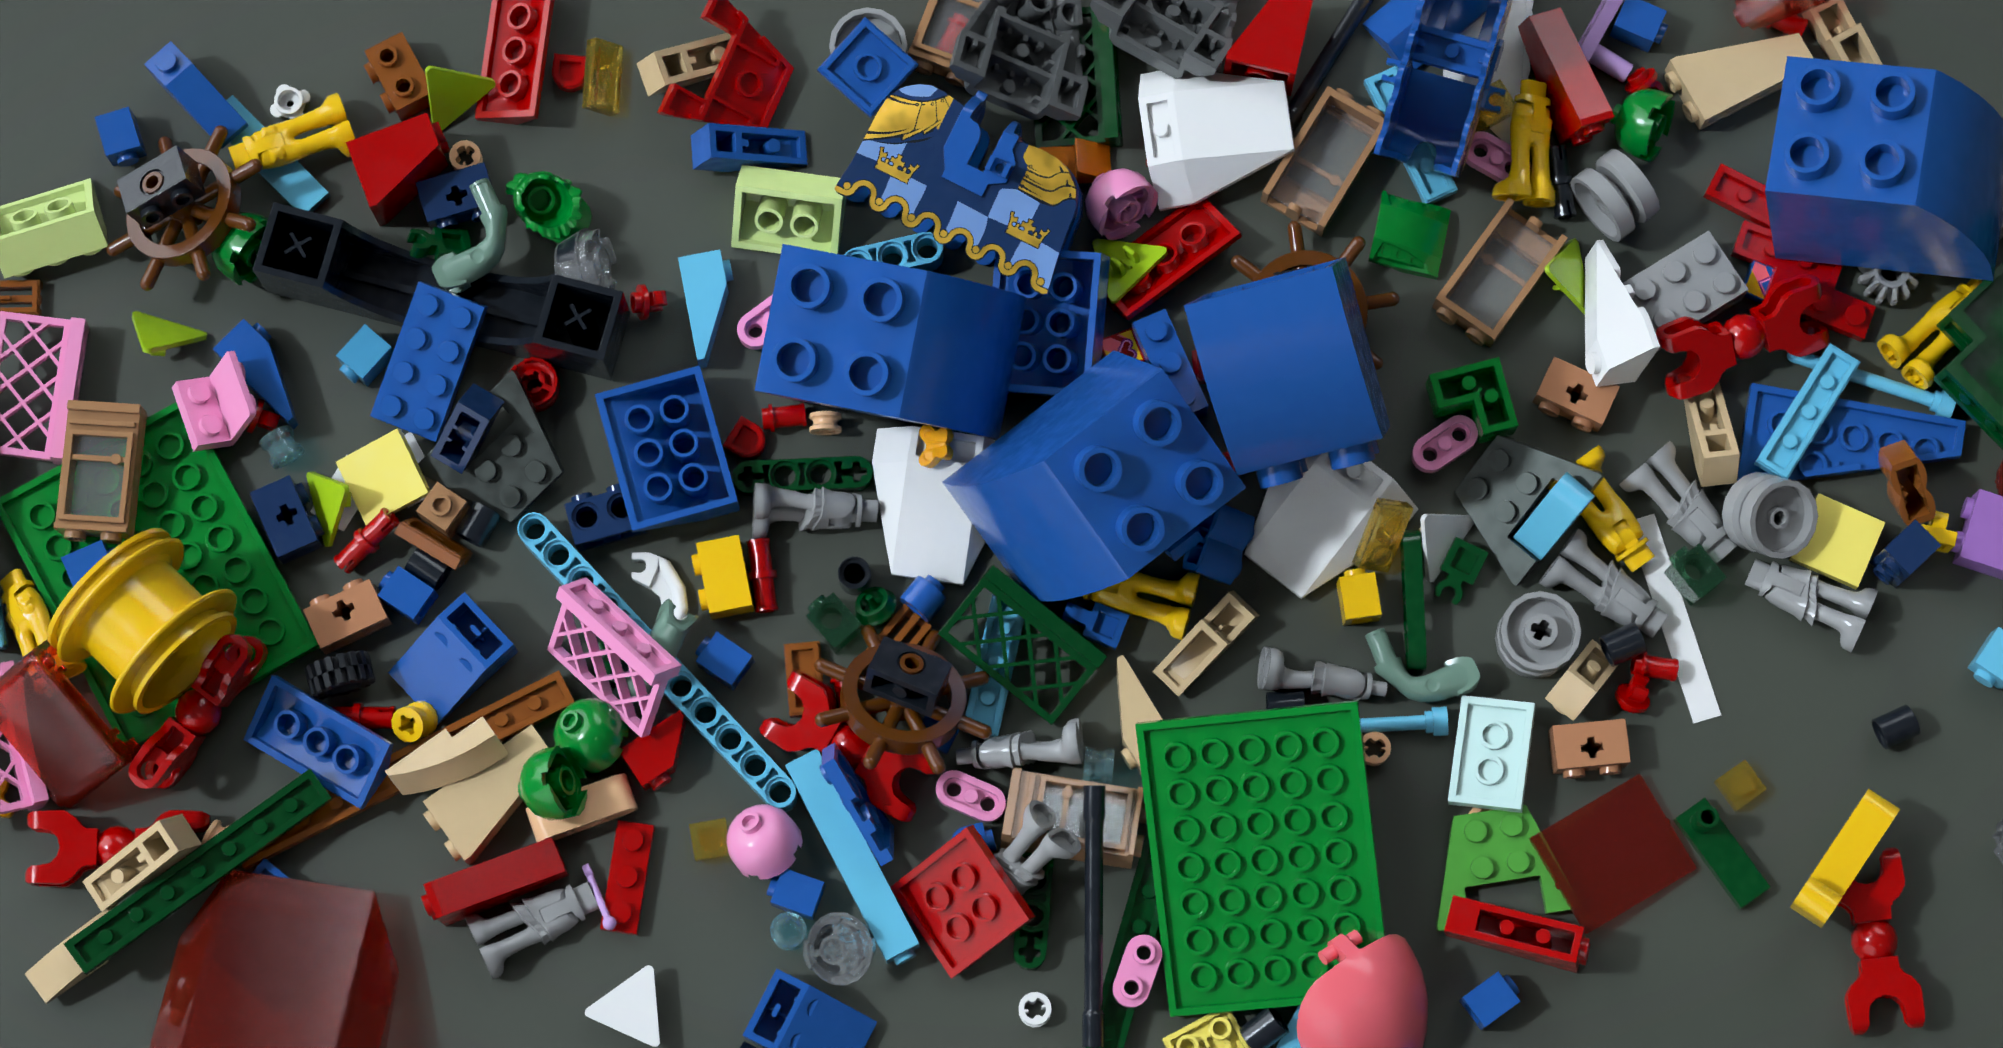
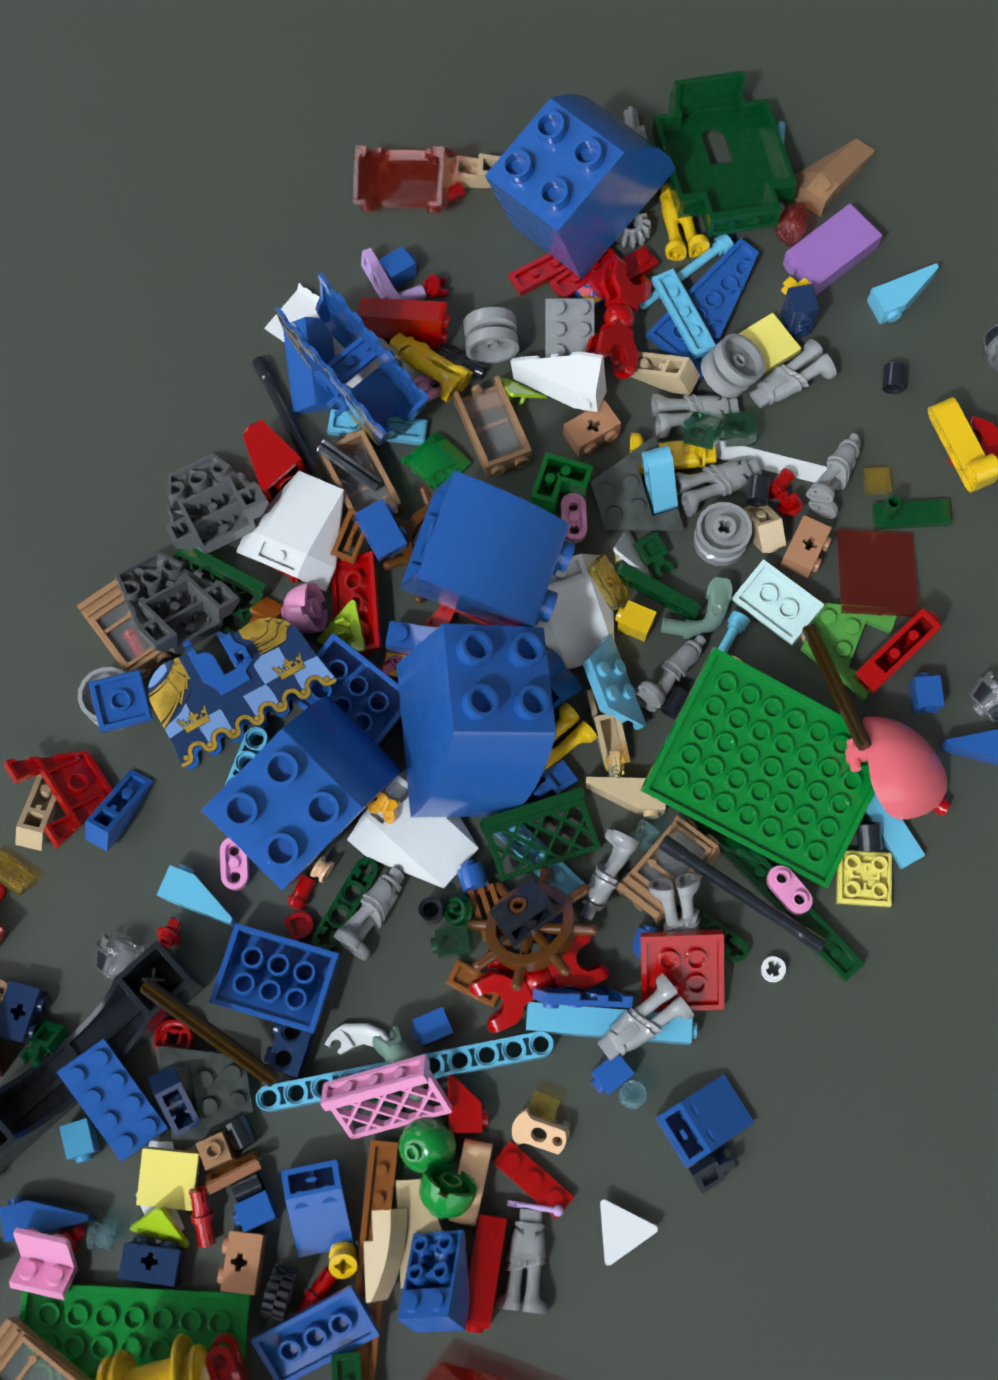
camera: 55 degrees left, 5 degrees down
(449, 832) = (436, 1283): none -> blue slope
(458, 271) = (69, 1040): sand green piece -> none
(549, 204) = (66, 955): green hair -> none
(560, 416) = (209, 1032): none -> dark brown axle
(671, 834) = (526, 1122): none -> light nougat piece
(724, 577) = (378, 994): yellow brick -> none
(762, 575) = (393, 969): red pin -> none
(763, 841) = (566, 1074): bright pink cylinder -> none
(786, 209) = (173, 810): yellowish green slope -> none
(839, 948) = (666, 1068): clear cone -> none
(860, 884) = (635, 1029): none -> light grey piece
(972, 794) = (614, 925): bright pink plate -> none
(1161, 679) = (615, 763): none -> clear yellow plate
(1254, 614) = (611, 683): none -> medium azure wing
(1268, 226) = (381, 529): none -> blue brick
(1273, 189) = (343, 555): none -> dark orange tile
(1332, 135) = (349, 465): none -> black axle
(1416, 879) = (836, 687): none -> dark brown axle
(1642, 122) = (456, 294): green cylinder -> none
(1657, 529) = (709, 423): none -> clear green brick
(1710, 730) = (834, 478): none -> light grey piece
(1730, 77) = (463, 238): tan slope -> none
(1906, 482) = (759, 285): dark orange brick -> none

